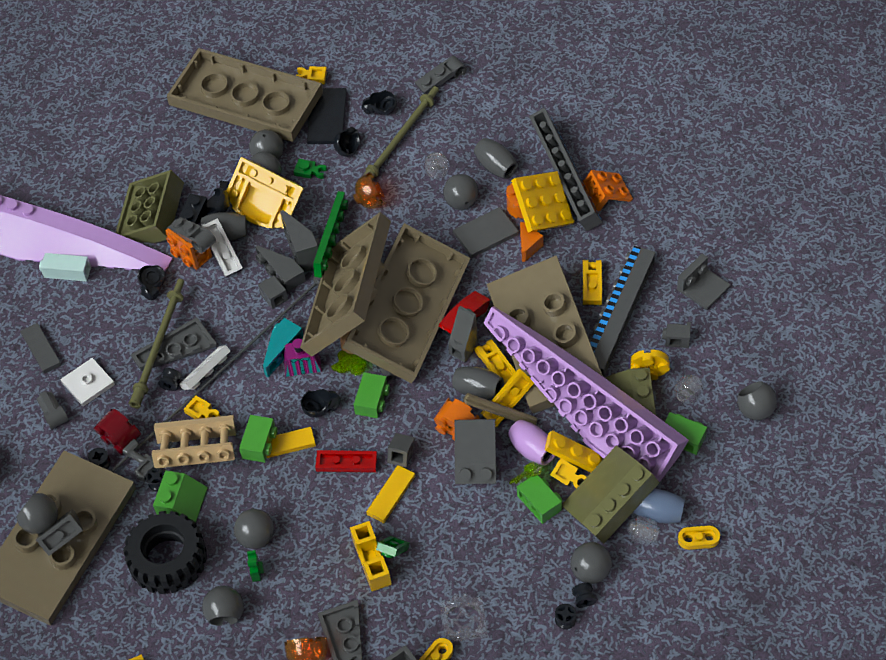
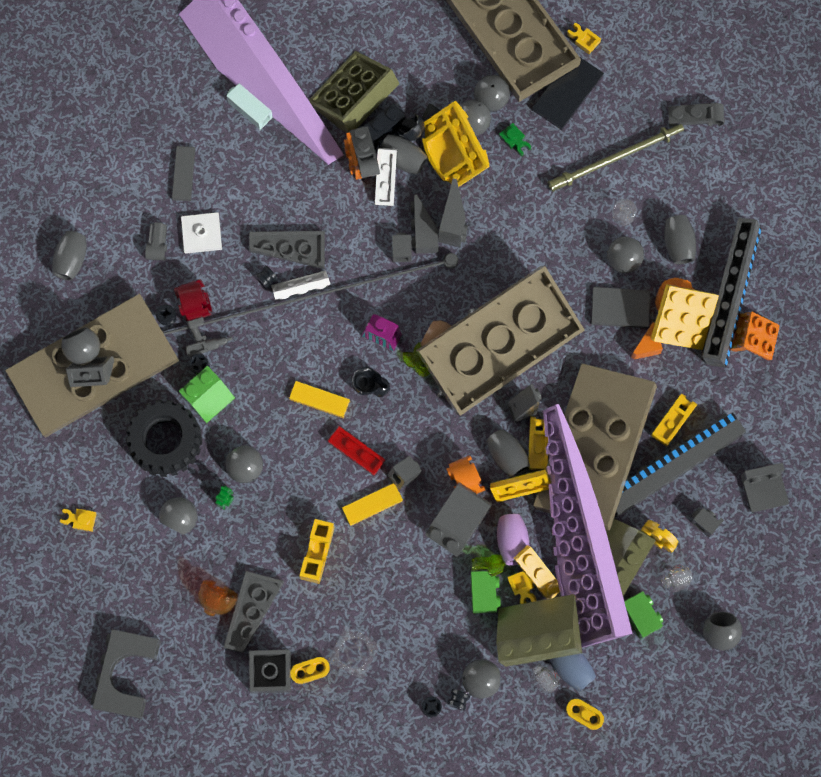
camera: 30 degrees right, 20 degrees up
(140, 388) = (237, 270): olive bar -> none
(151, 280) = (309, 167): black hair -> none
(194, 430) = (255, 338): tan fence -> none
(199, 408) = (272, 322): yellow plate -> none
(258, 438) = (298, 385): bright green brick -> none
(282, 334) = (378, 302): teal slope -> none
(329, 236) = (480, 229): green plate -> none
(347, 139) = (568, 131): black hair -> none
(347, 285) = (457, 294): dark tan plate -> none
(367, 192) = (546, 199): clear orange cylinder -> none
(371, 395) = (415, 404): bright green brick -> none
(380, 102) = (621, 110): black hair -> none
(392, 546) = (339, 555): green plate -> none
(475, 301) = (545, 378): red slope -> none
(498, 409) = (505, 493): dark tan axle -> none

